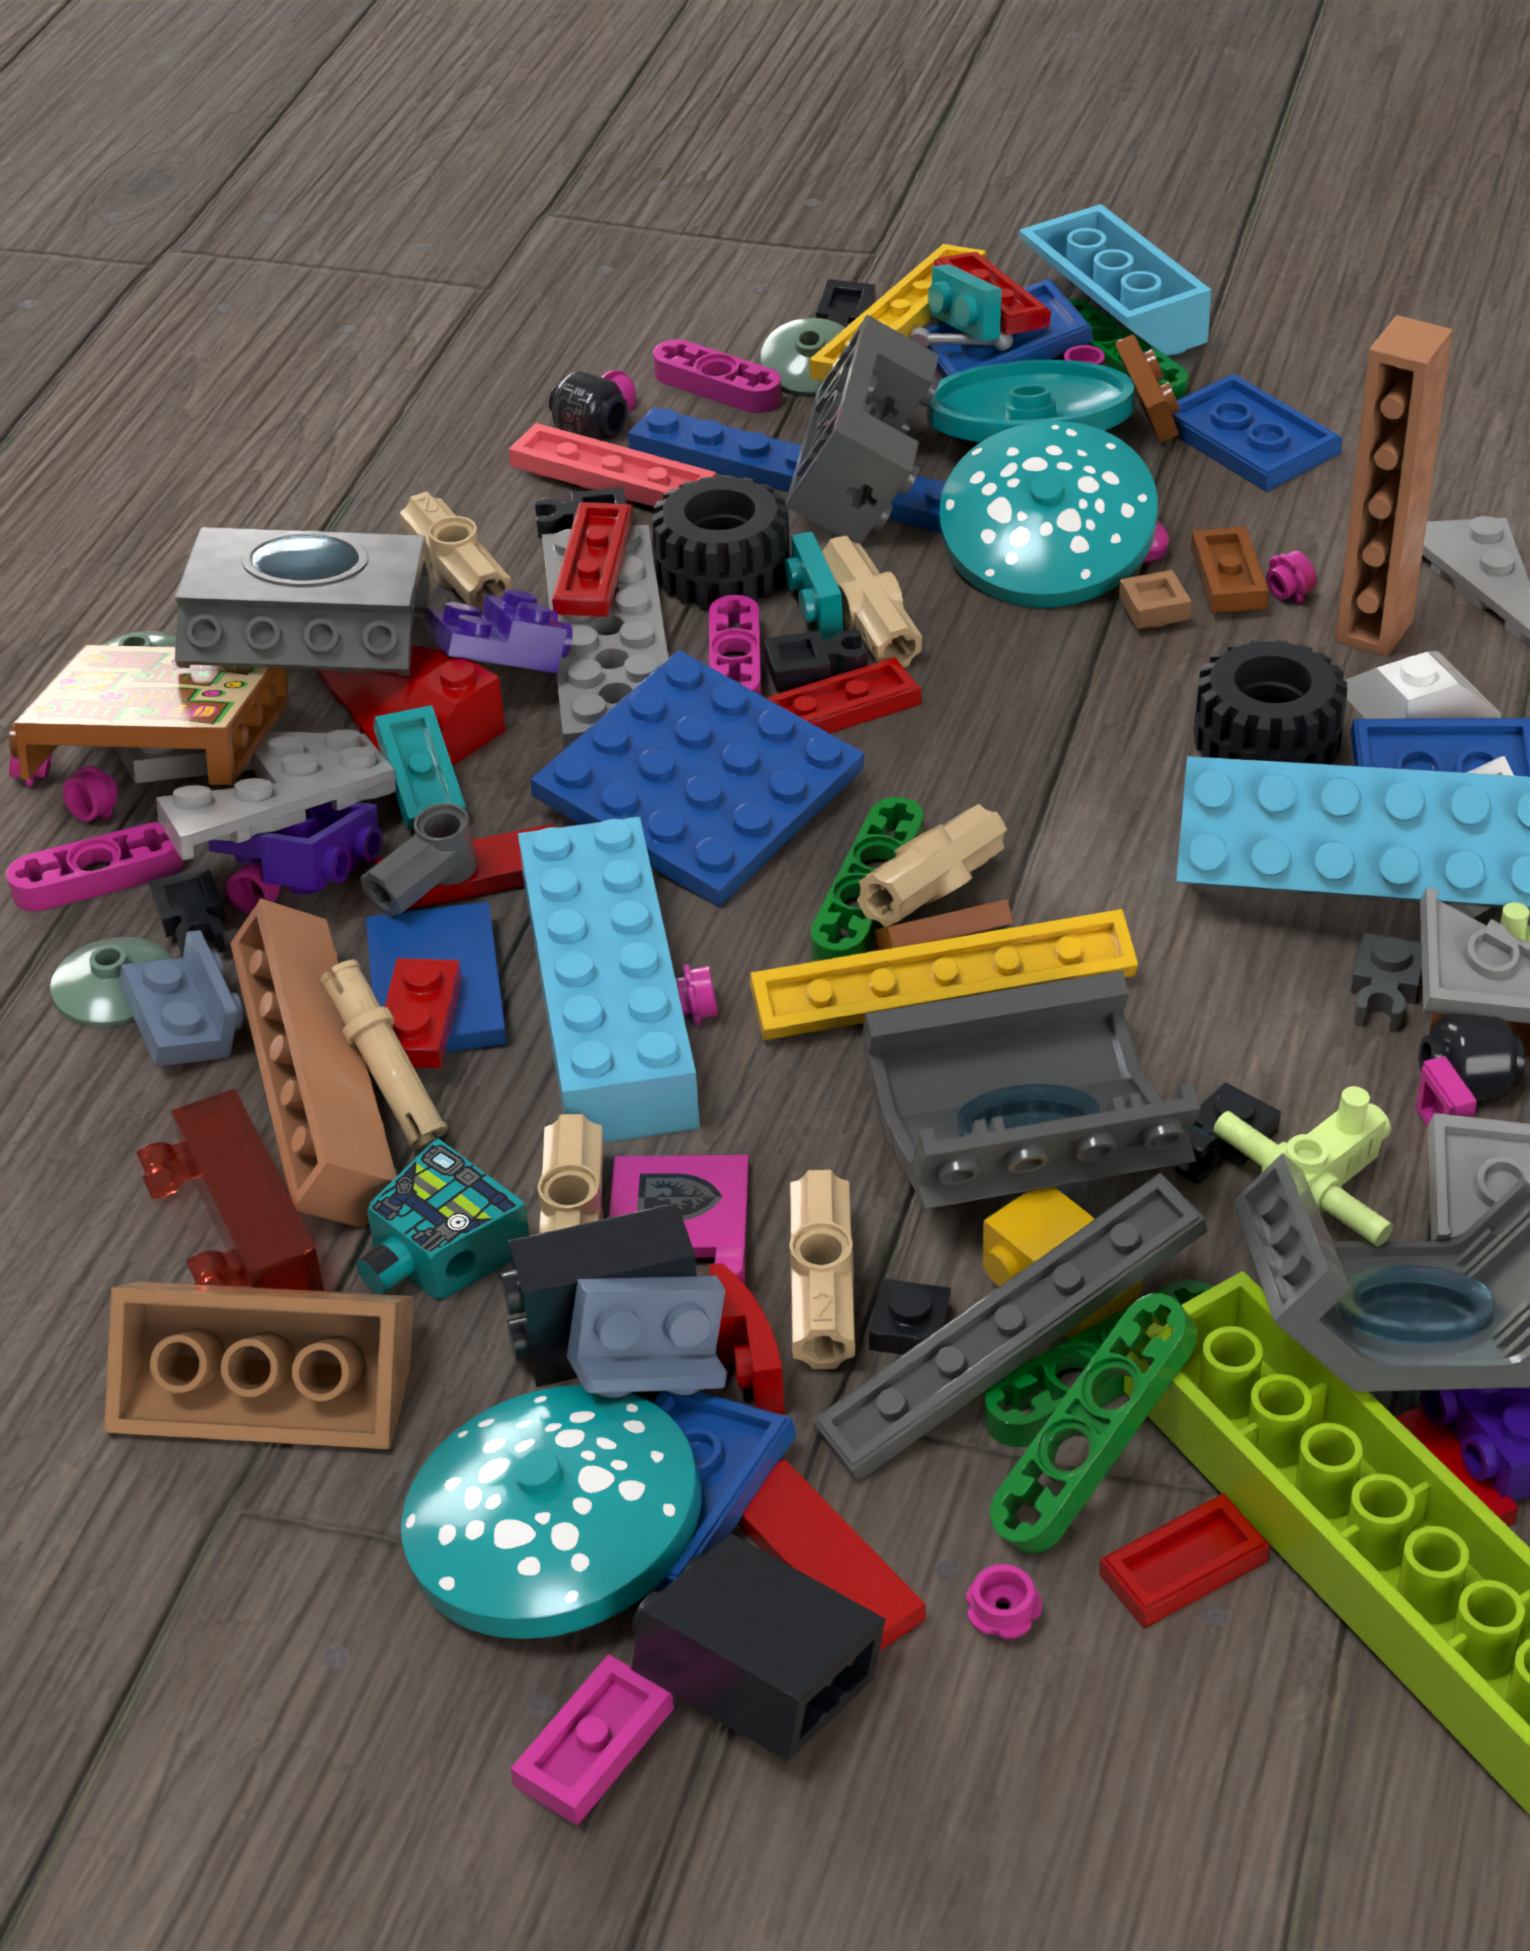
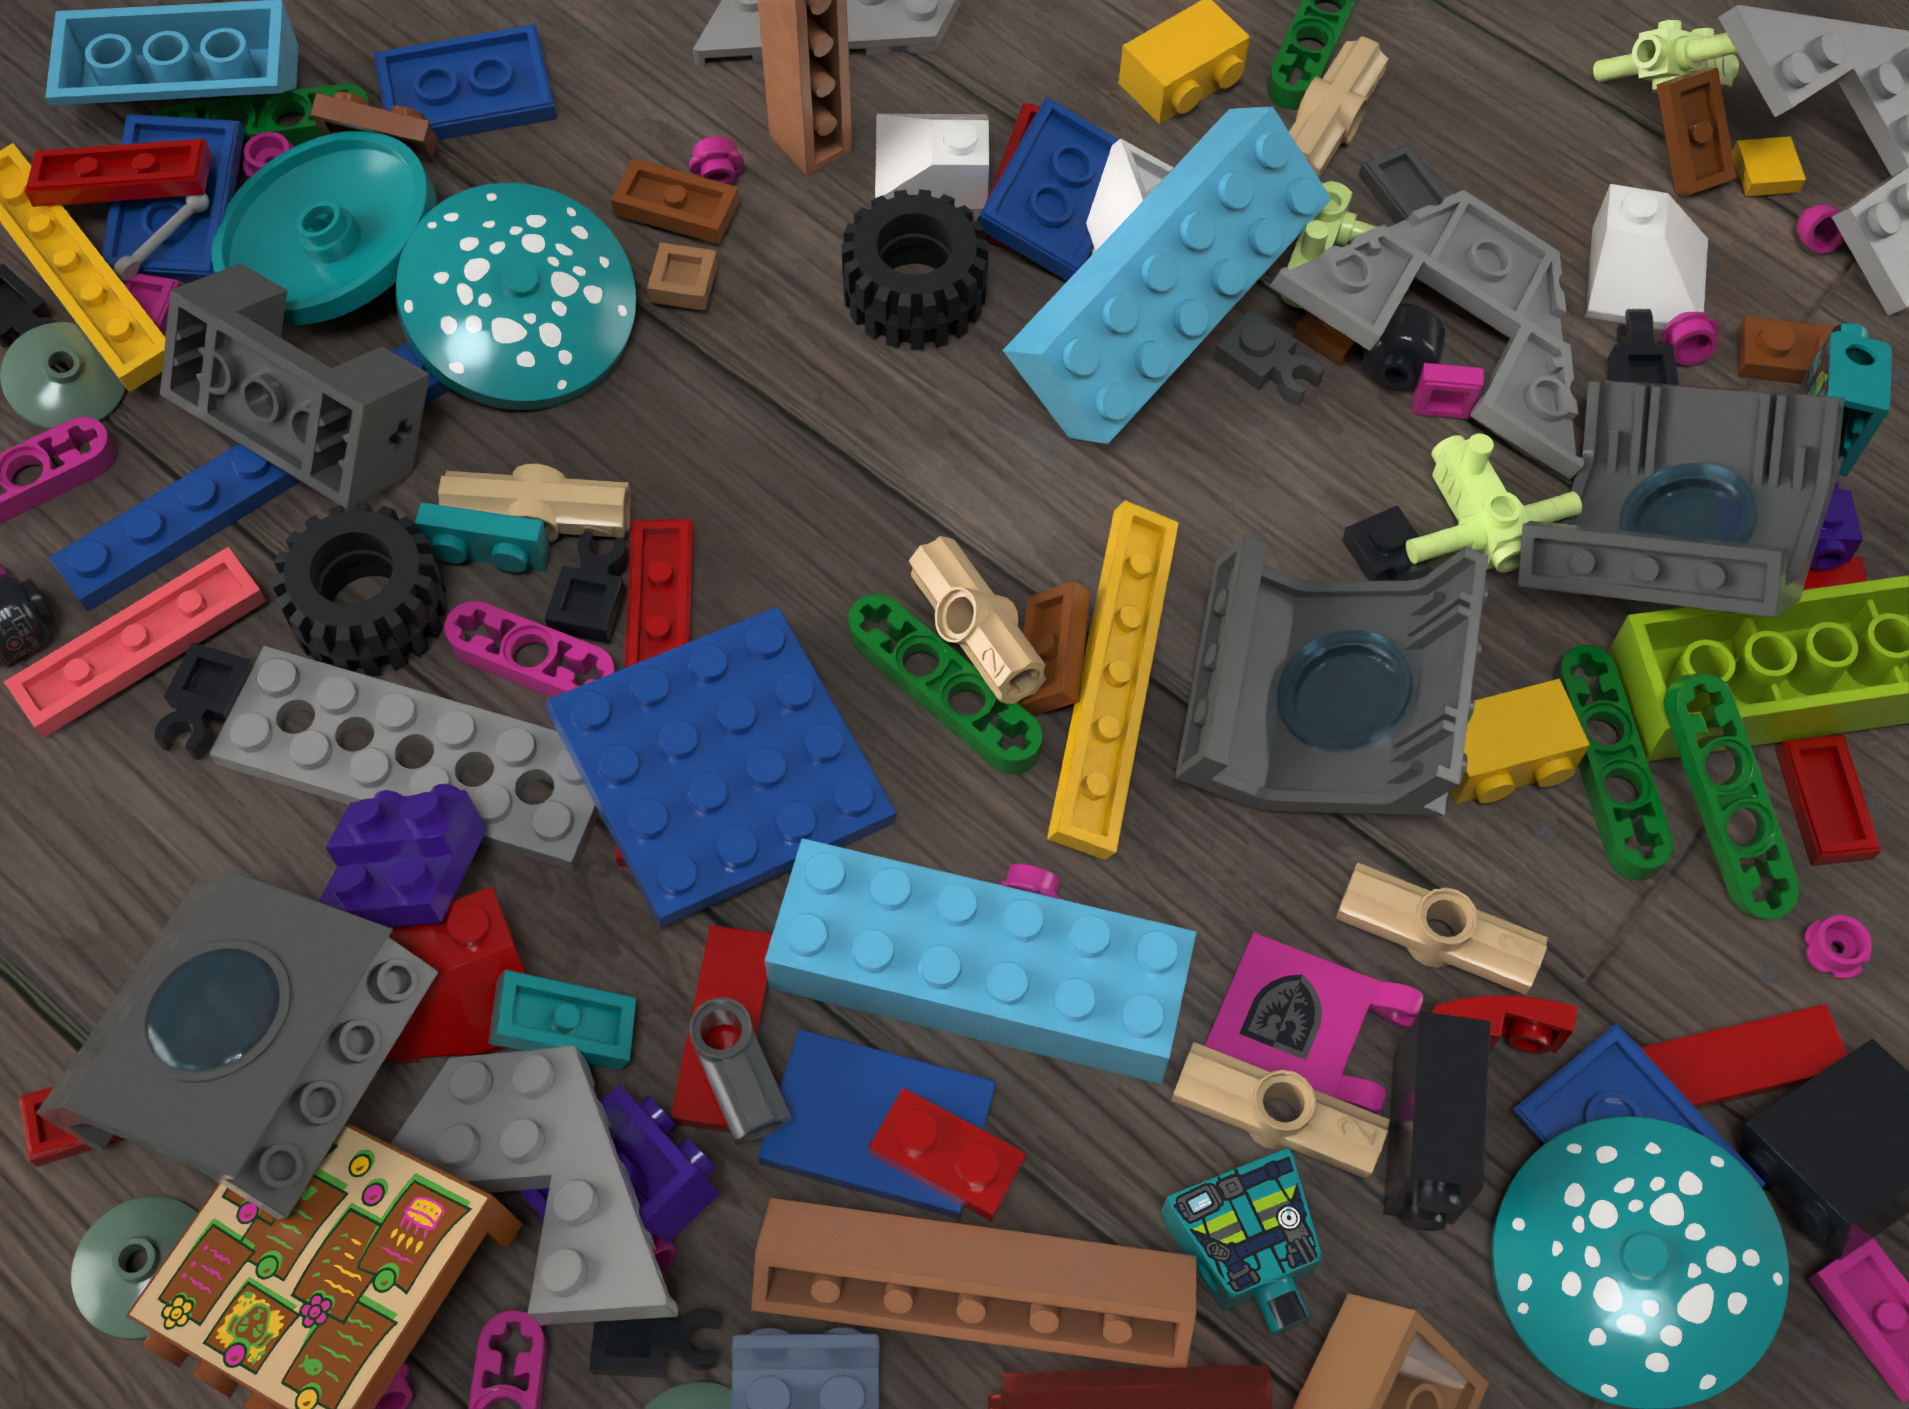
camera: 70 degrees left, 20 degrees up
(372, 1032) = (992, 1208): tan pin -> none
(454, 550) = (151, 852): tan piece -> none
(593, 559) = (315, 720): red tile -> none
(647, 1335) = (1525, 1108): sand blue bracket -> none
(907, 1315) = (1505, 883): black plate -> none
(965, 302) = (130, 200): teal plate -> none
(1009, 1326) = (1592, 813): dark grey tile -> none

